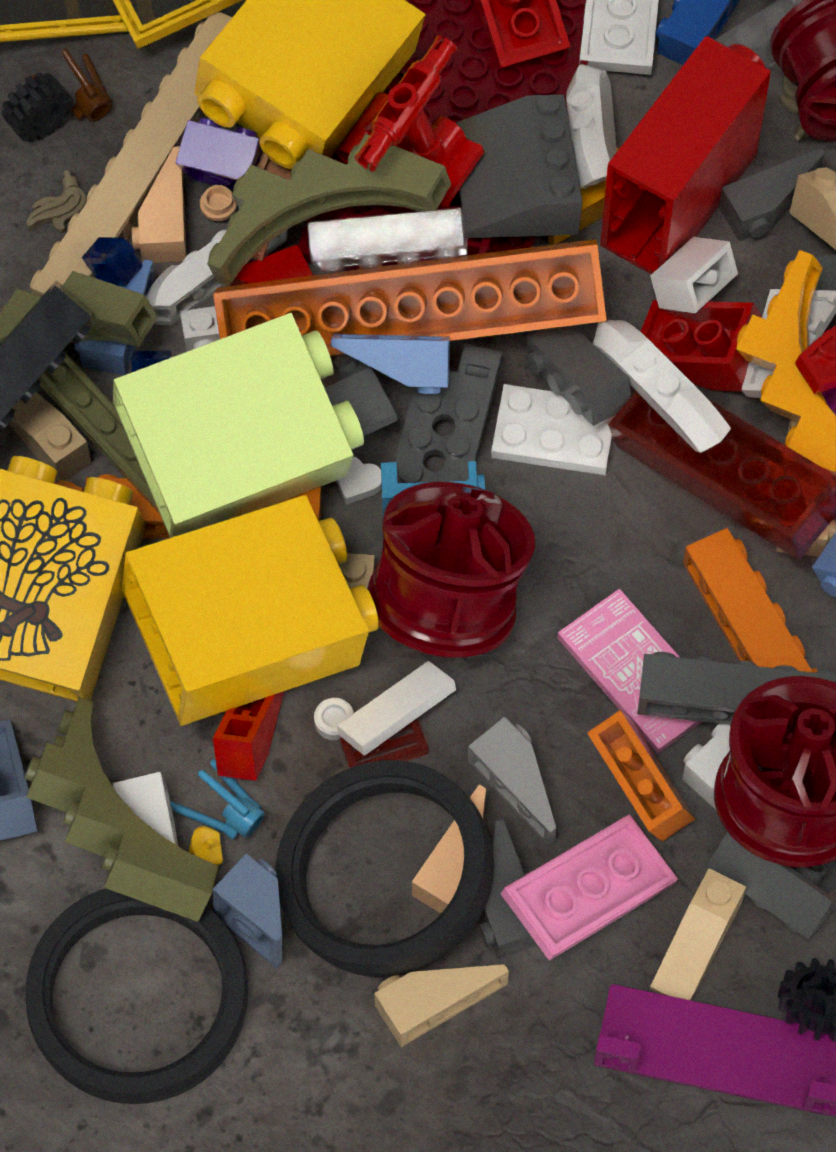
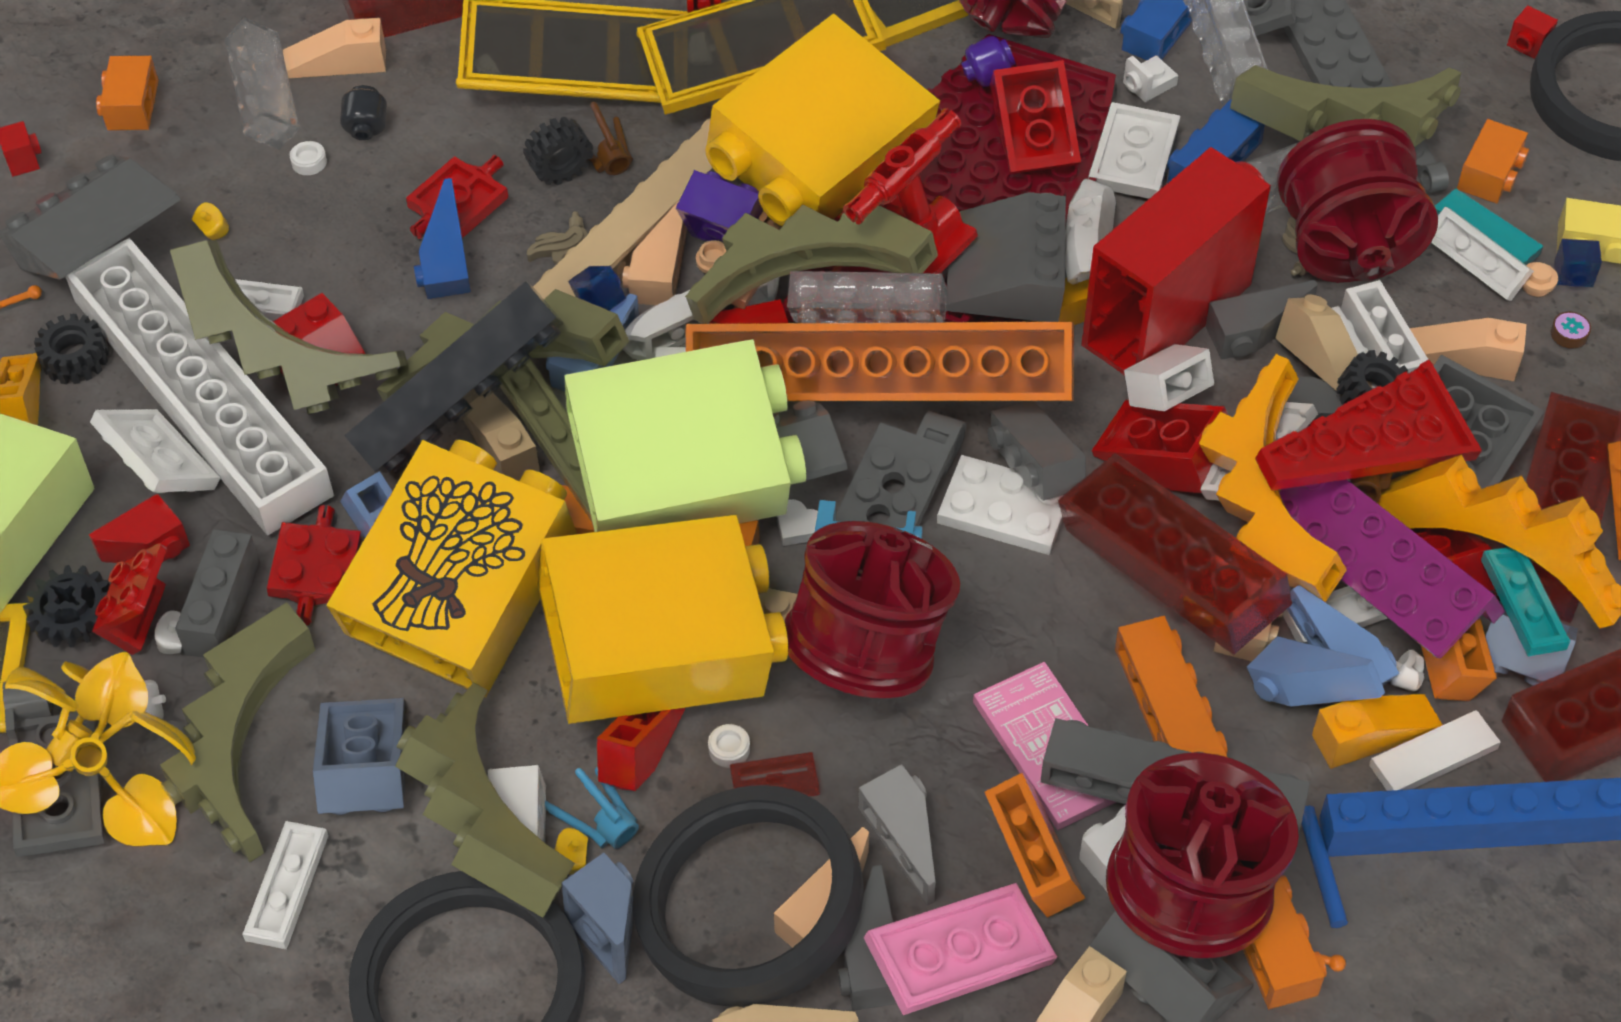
camera: 10 degrees right, 10 degrees down
(396, 708) = (793, 742): white tile -> none
(406, 358) = (867, 411): medium blue slope -> none
(662, 384) = (1118, 466): white brick -> none

